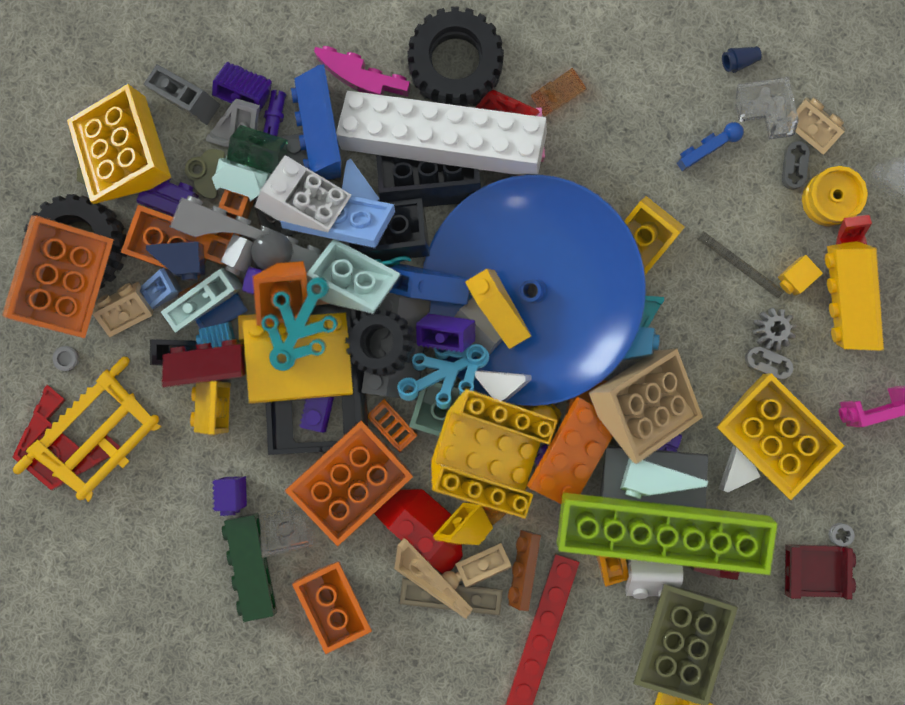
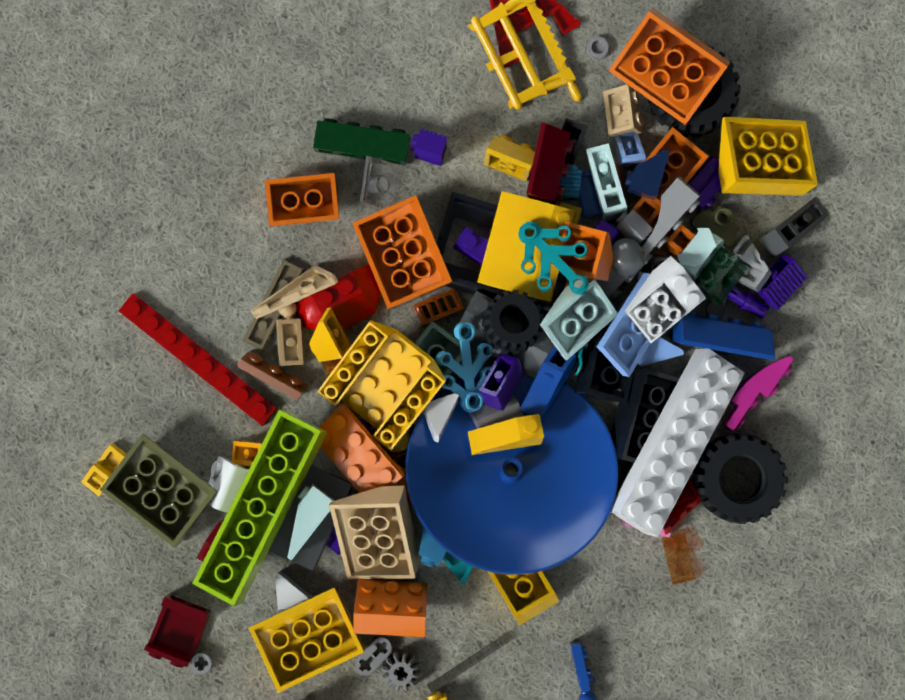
camera: 105 degrees right, 0 degrees up
(716, 362) = (390, 608): none -> orange brick

